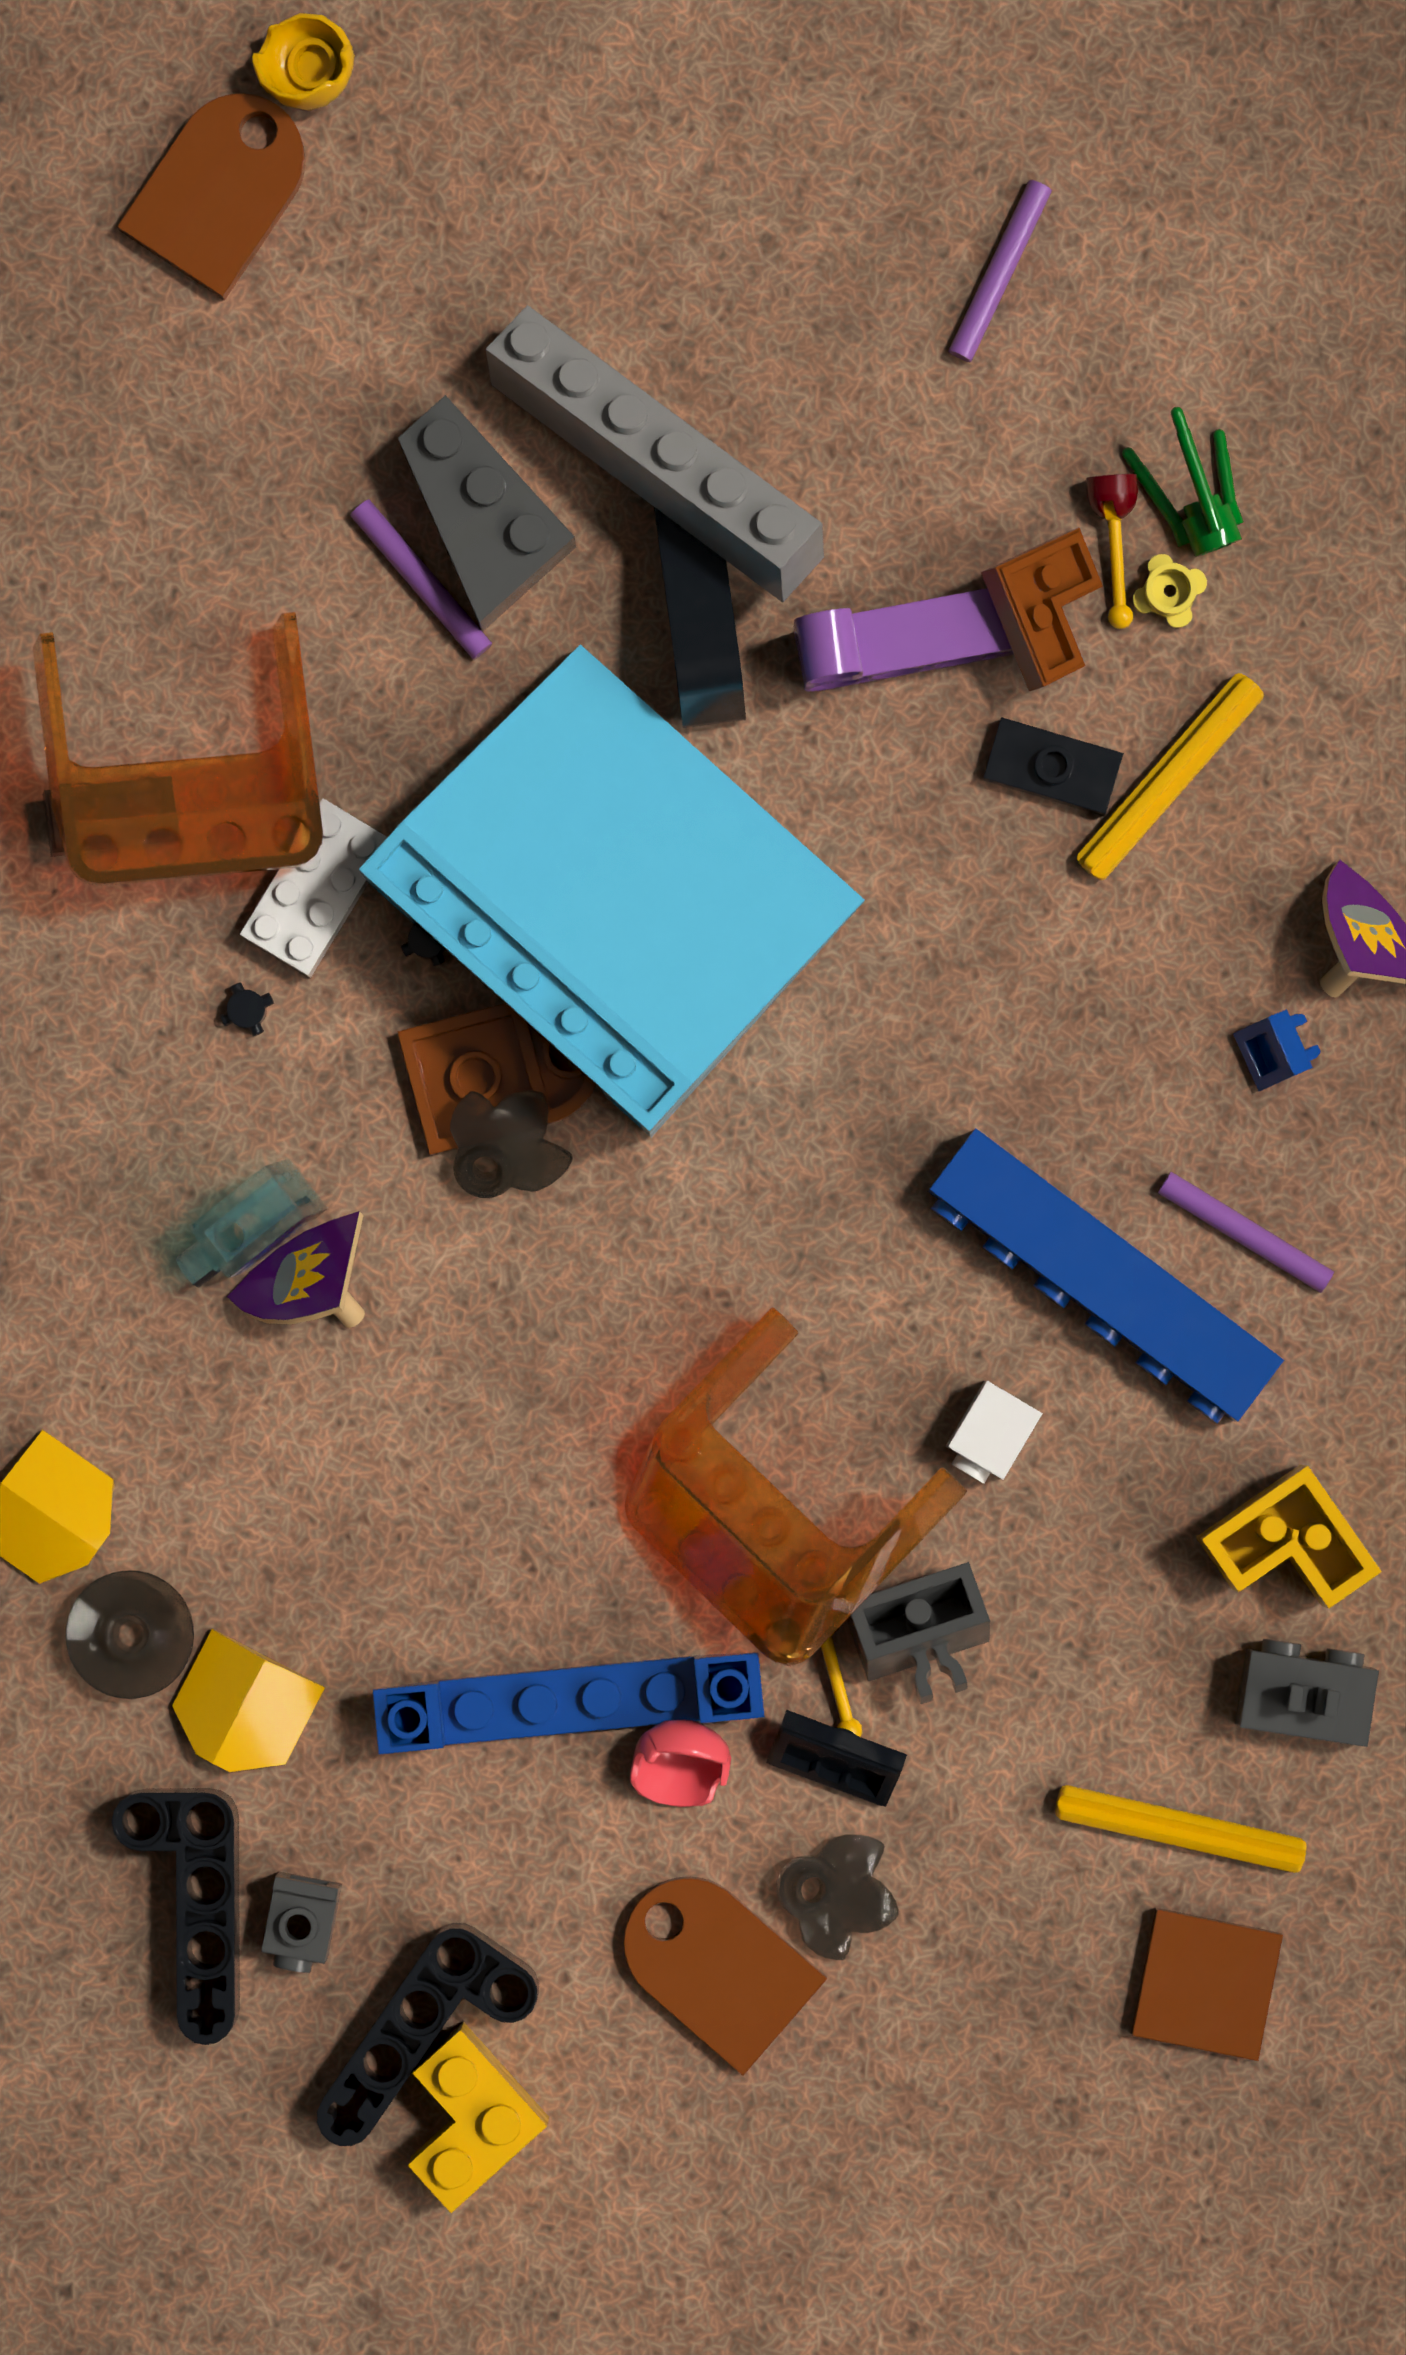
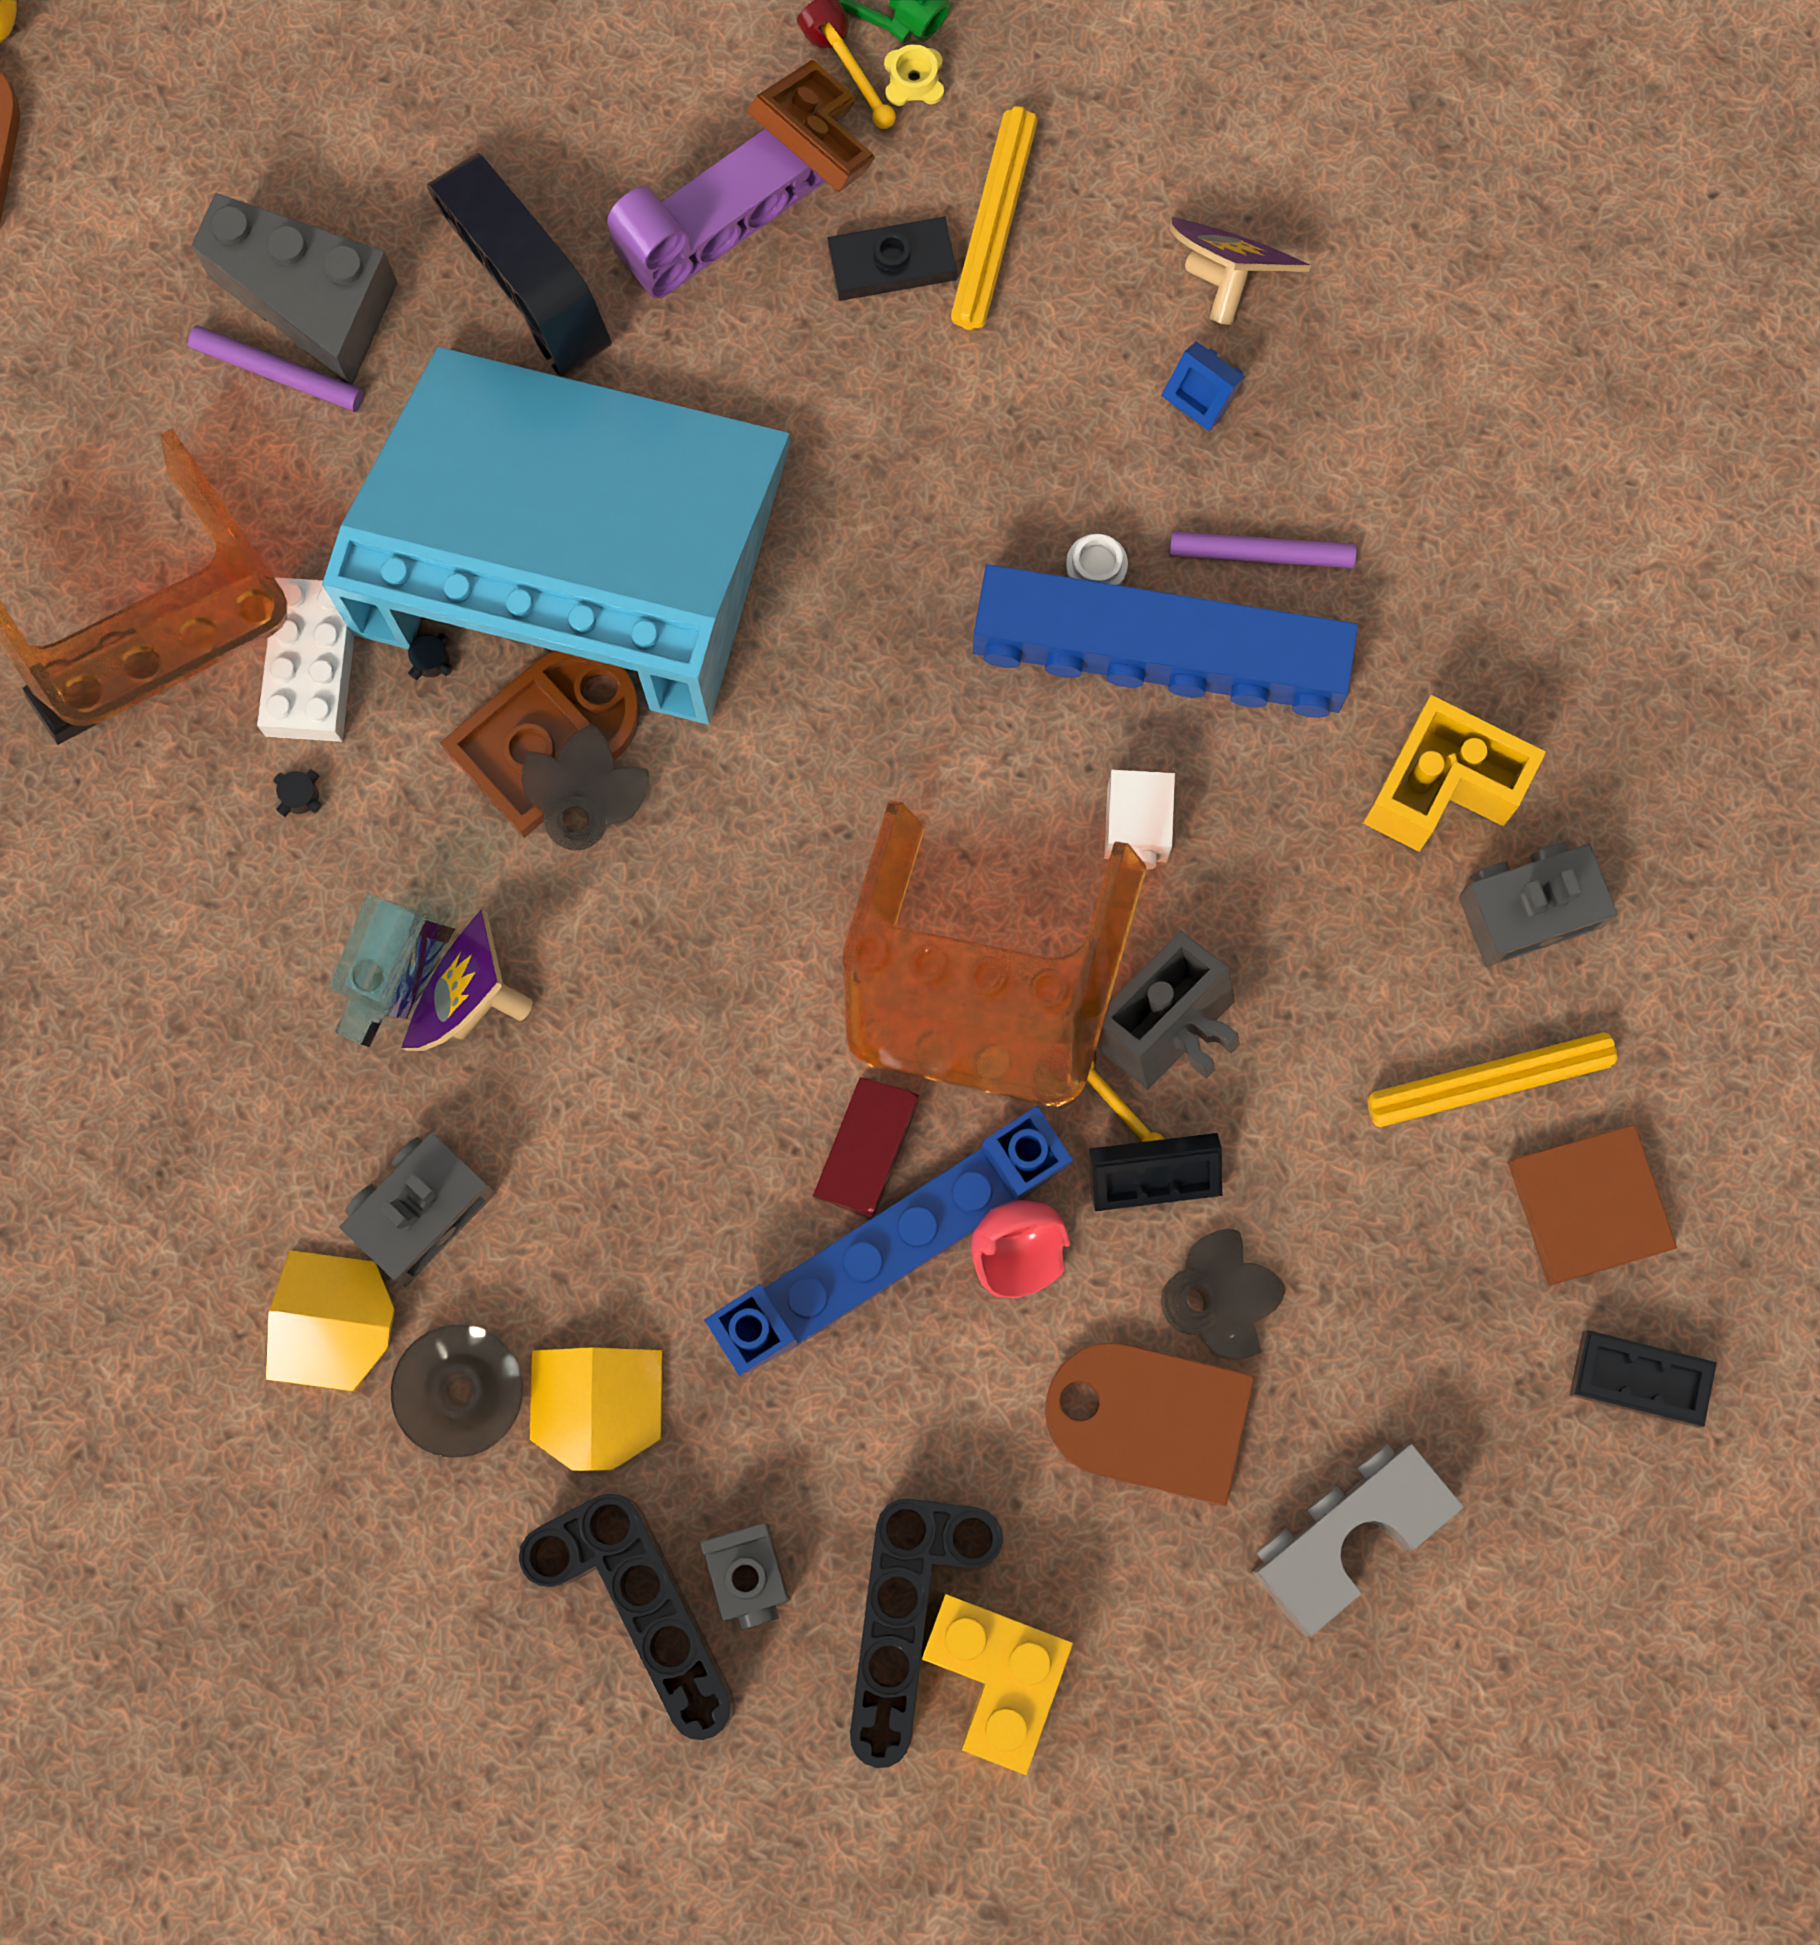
camera: 30 degrees left, 10 degrees down
(171, 1454) = (415, 1208): none -> dark grey brick
(594, 1601) = (866, 1147): none -> dark red slope
(655, 453) = (421, 149): light grey brick -> none
(781, 2162) = (1307, 1570): none -> light grey arch
(1084, 1168) = (1097, 559): none -> white plate
(1163, 2156) = (1643, 1379): none -> black plate

